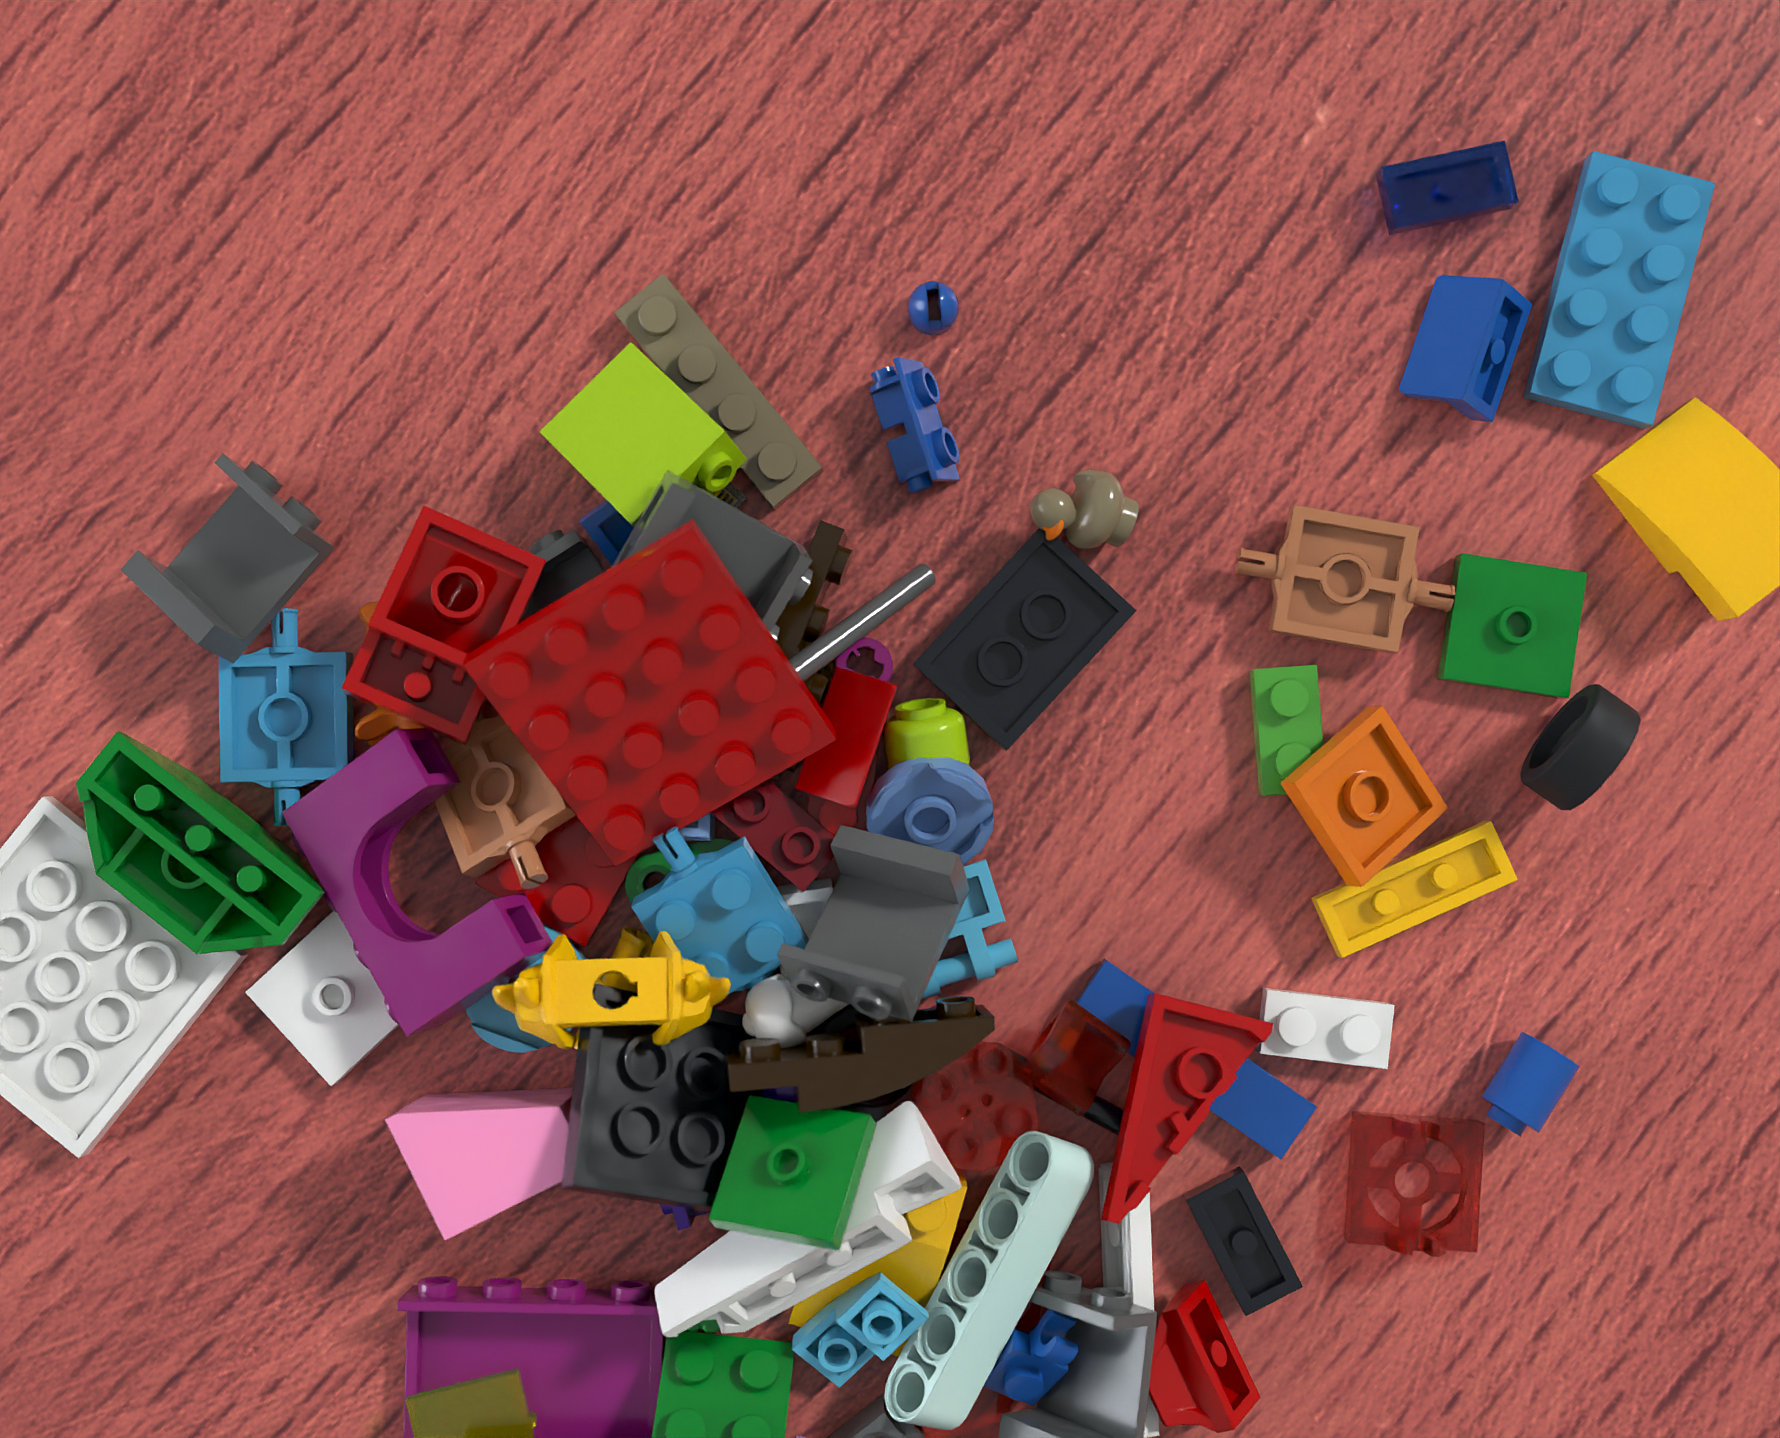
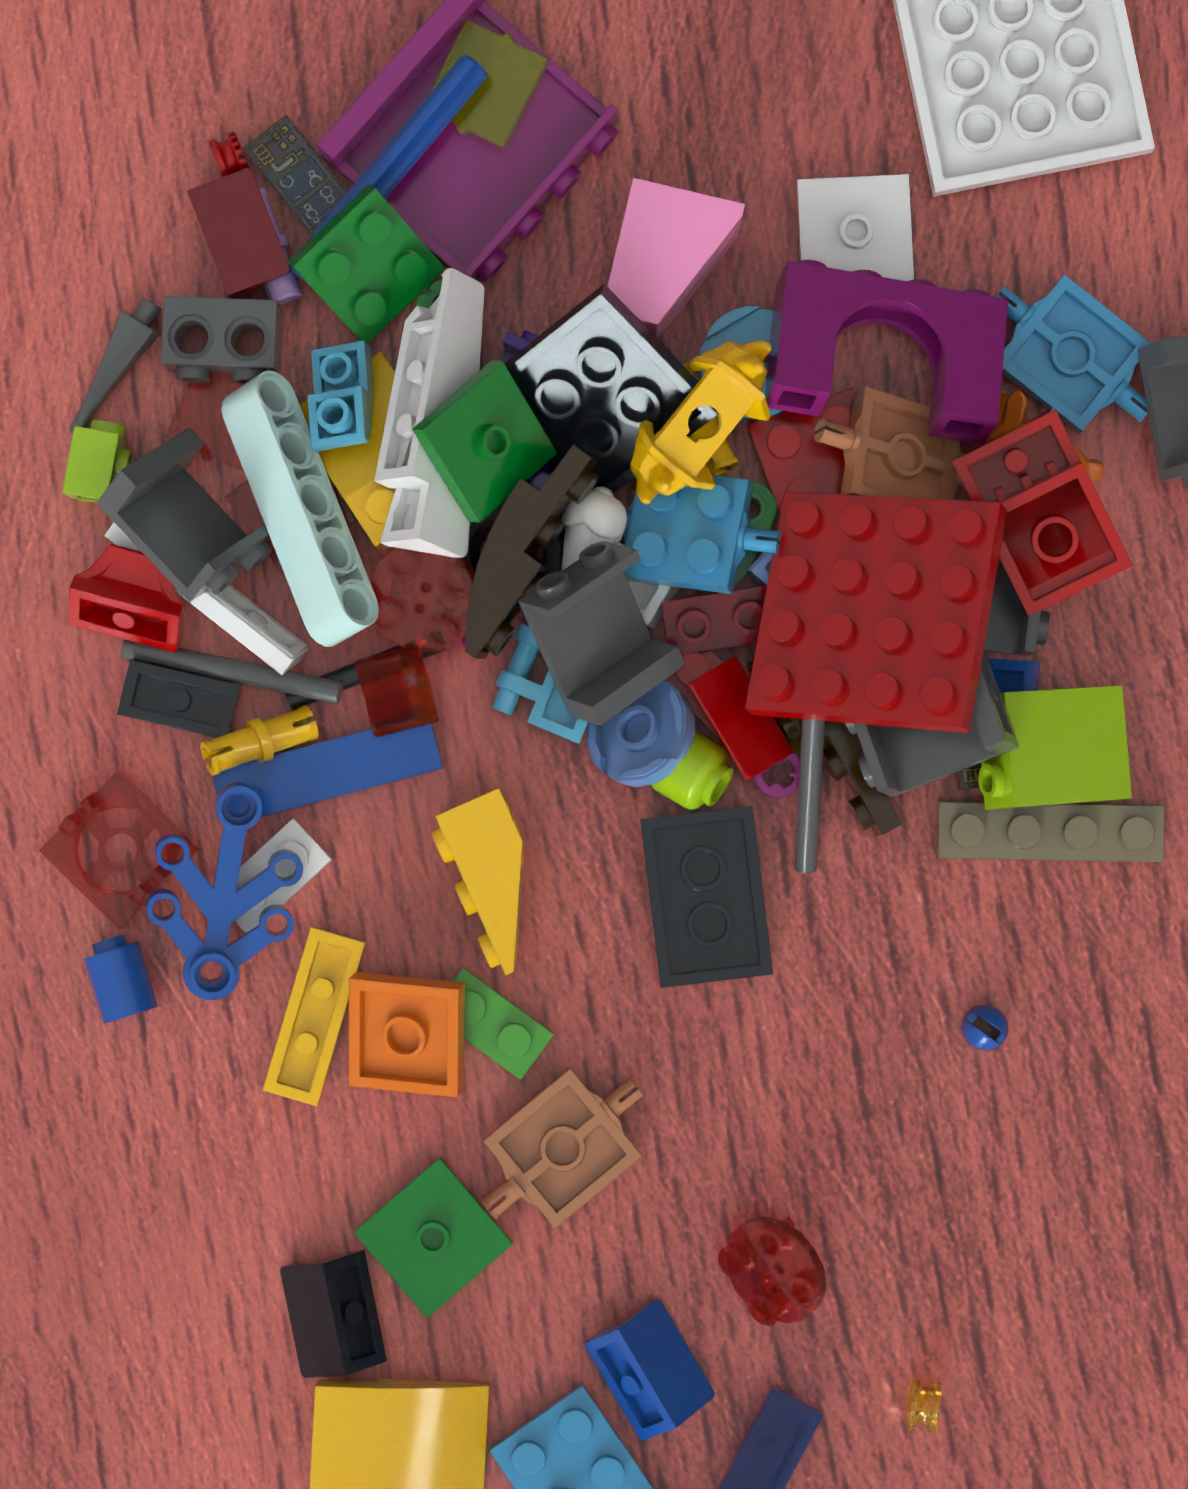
camera: 125 degrees right, 0 degrees up
(190, 853) = (1031, 216): green wedge -> none
(911, 400) = (937, 958): blue hinge -> none
(1034, 1360) = (220, 492): blue plate -> none
(1092, 514) = (750, 1011): dark tan animal -> none
(1154, 852) = (491, 859): none -> yellow slope
(1179, 1069) = (329, 751): red wing -> none
(1190, 1239) = (235, 671): none -> dark grey bar
(1224, 1144) = (259, 740): none -> yellow pin
(1295, 310) = (774, 1270): none -> clear red plate
(1299, 91) = (923, 1406): none -> clear yellow bush
(1390, 1054) = (223, 901): none -> blue plant
(1580, 747) = (317, 1206): black tyre -> none
(1654, 651) = (333, 1315): none -> black panel

